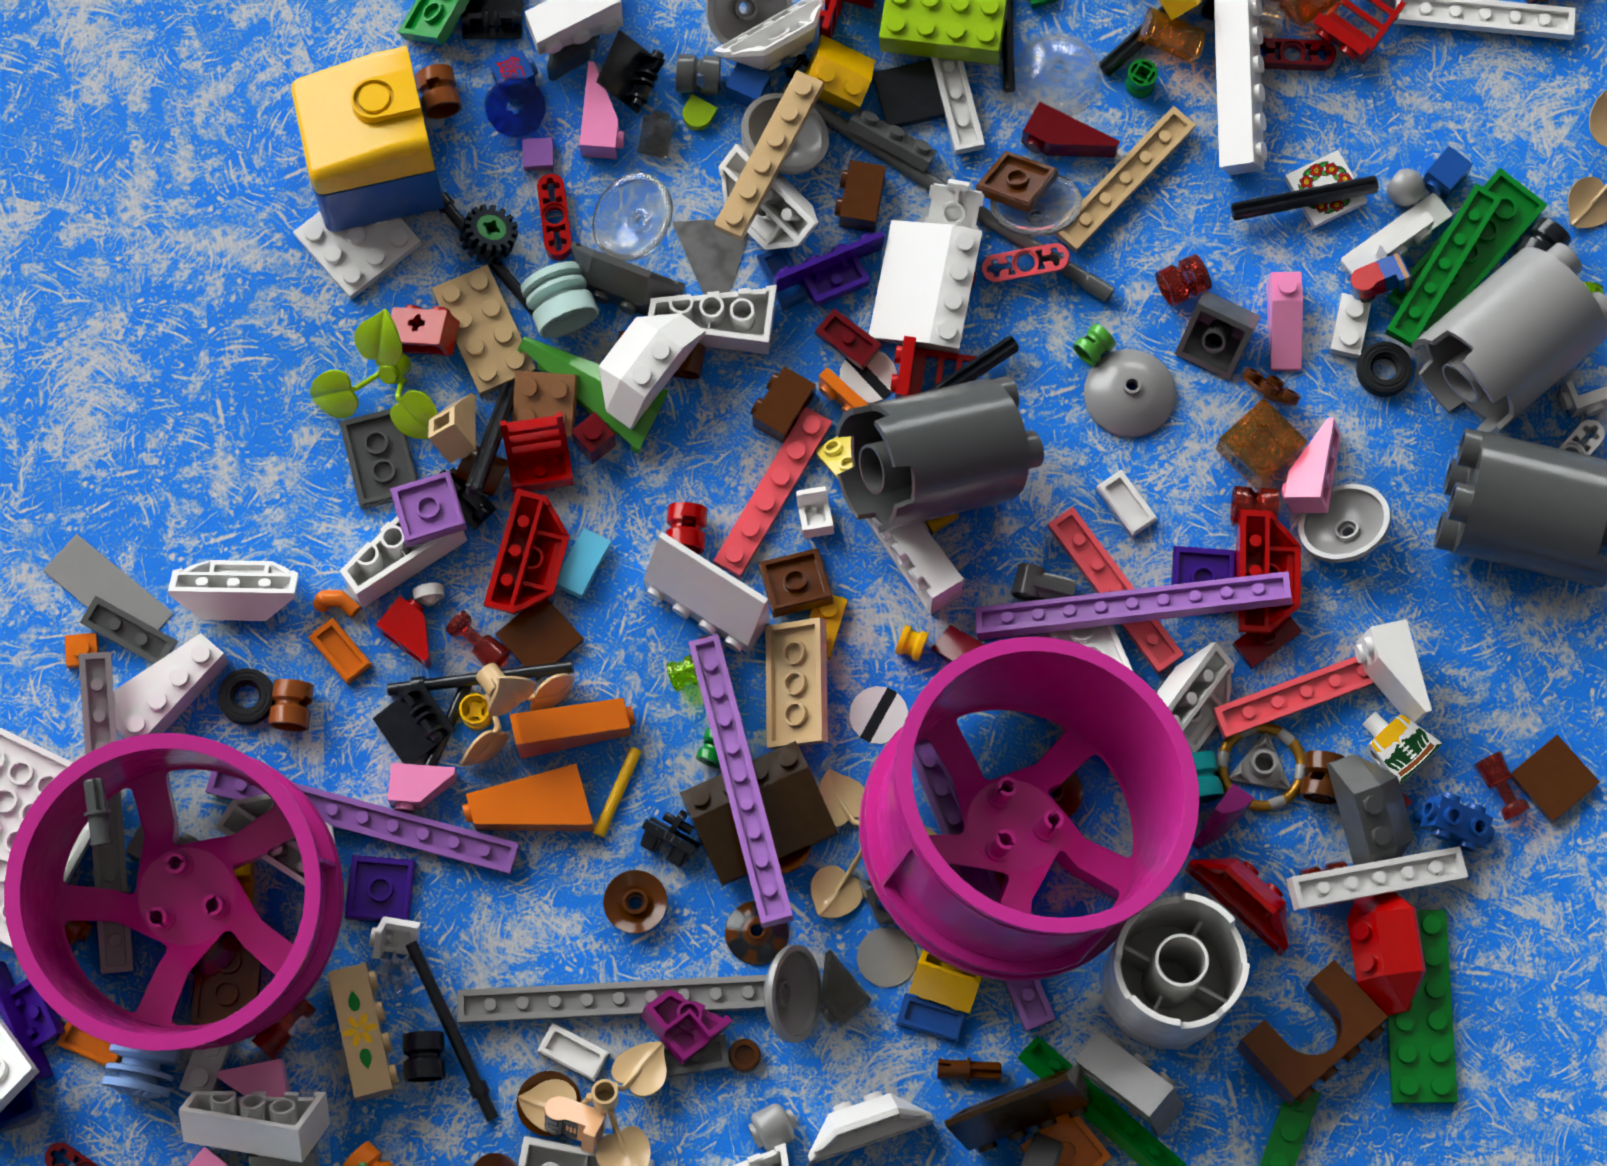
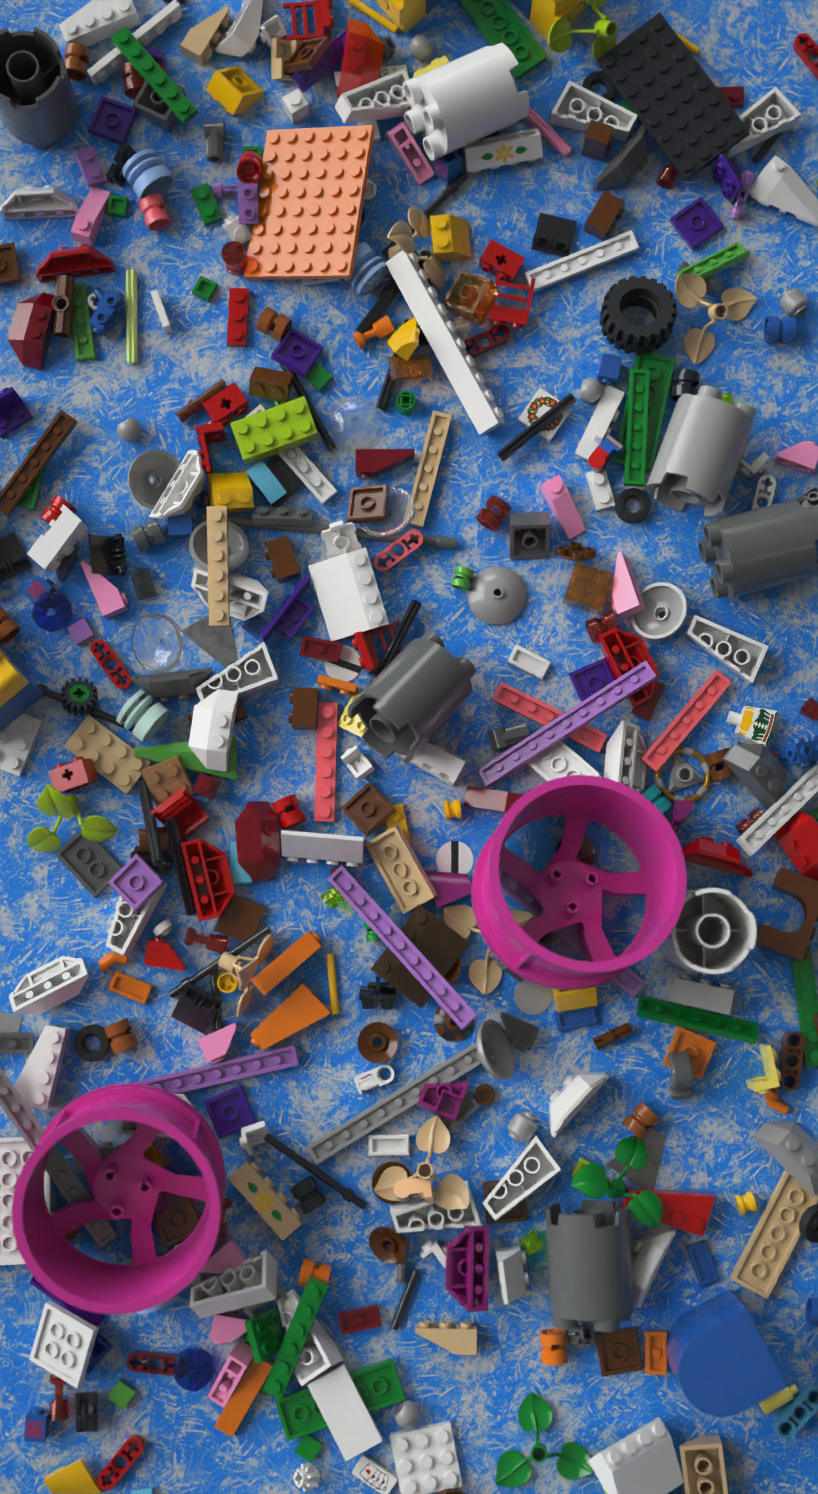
camera: 30 degrees left, 10 degrees up
(97, 812) = (53, 1191): dark grey axle -> none
(455, 429) = (124, 826): tan slope -> none
(510, 482) = (185, 886): none -> black axle
(600, 948) = (370, 1078): none -> white piece
(621, 546) = (258, 841): none -> dark red wedge
(698, 113) = (160, 558): lime tile -> none
(849, 744) = (449, 886): none -> magenta slope
(894, 84) = (266, 482): none -> medium azure slope
(1020, 1109) = (654, 1046): dark brown slope -> none
(1393, 666) = (729, 680): white slope -> none
(1434, 634) = (729, 647): none -> white wedge
(1534, 89) = (641, 293): none -> black tyre

